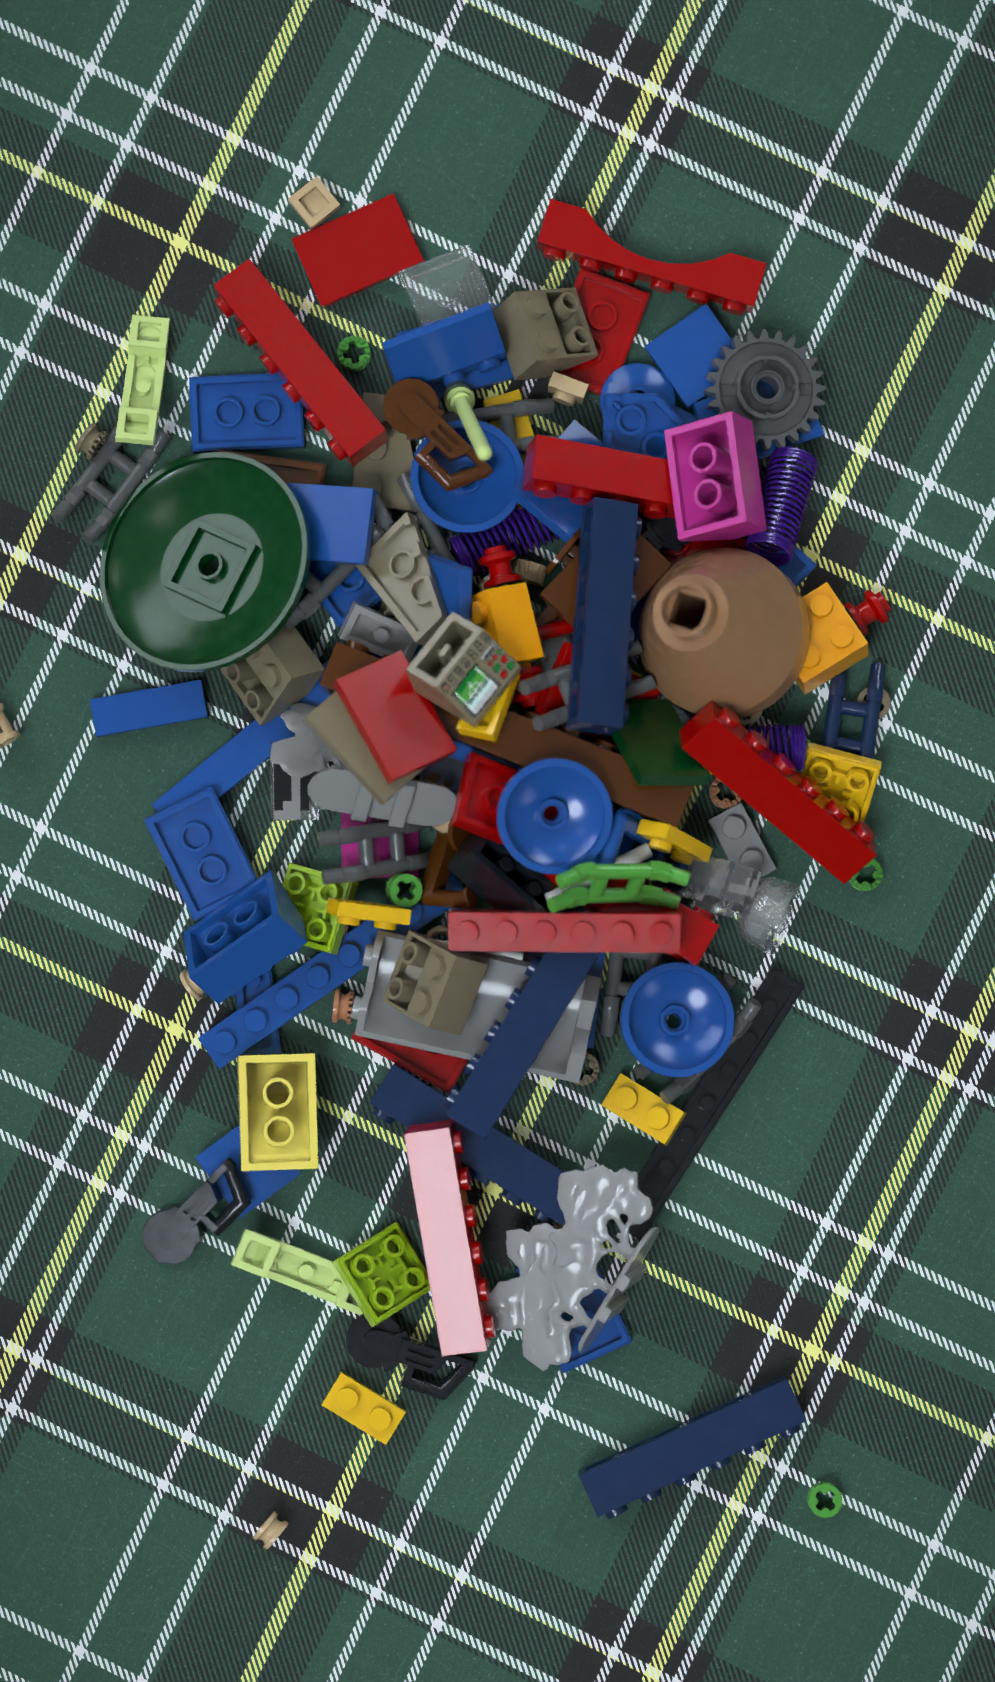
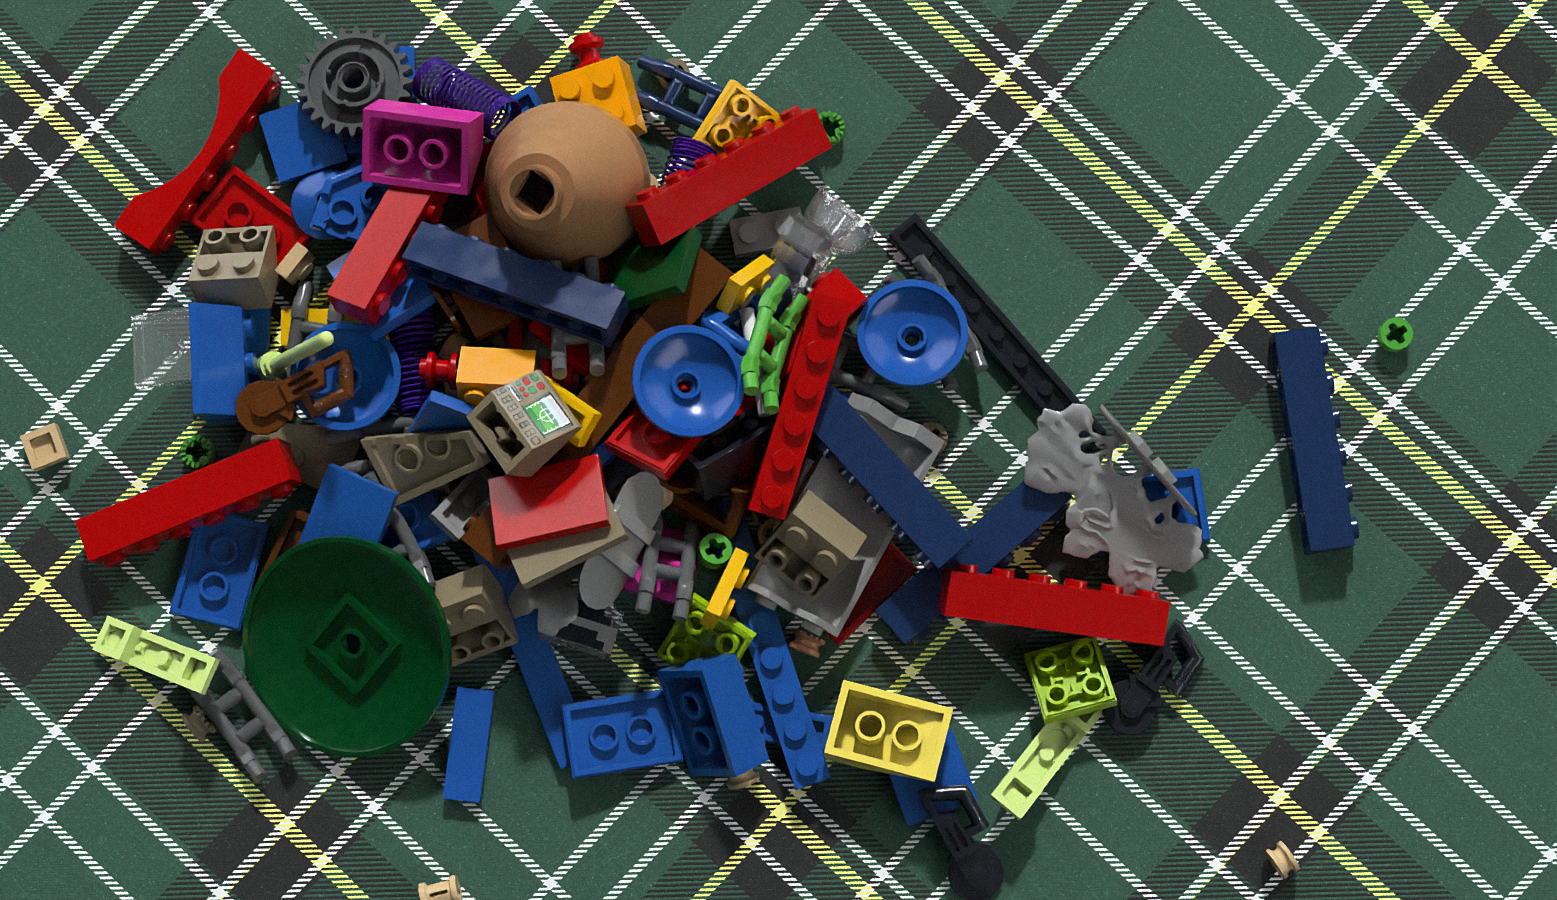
camera: 70 degrees left, 5 degrees down
(357, 251) = (103, 421): red tile -> none
(363, 1408) = (1190, 737): yellow plate -> none
(643, 1109) = (985, 393): yellow plate -> none
(725, 803) = (718, 221): nougat bush -> none

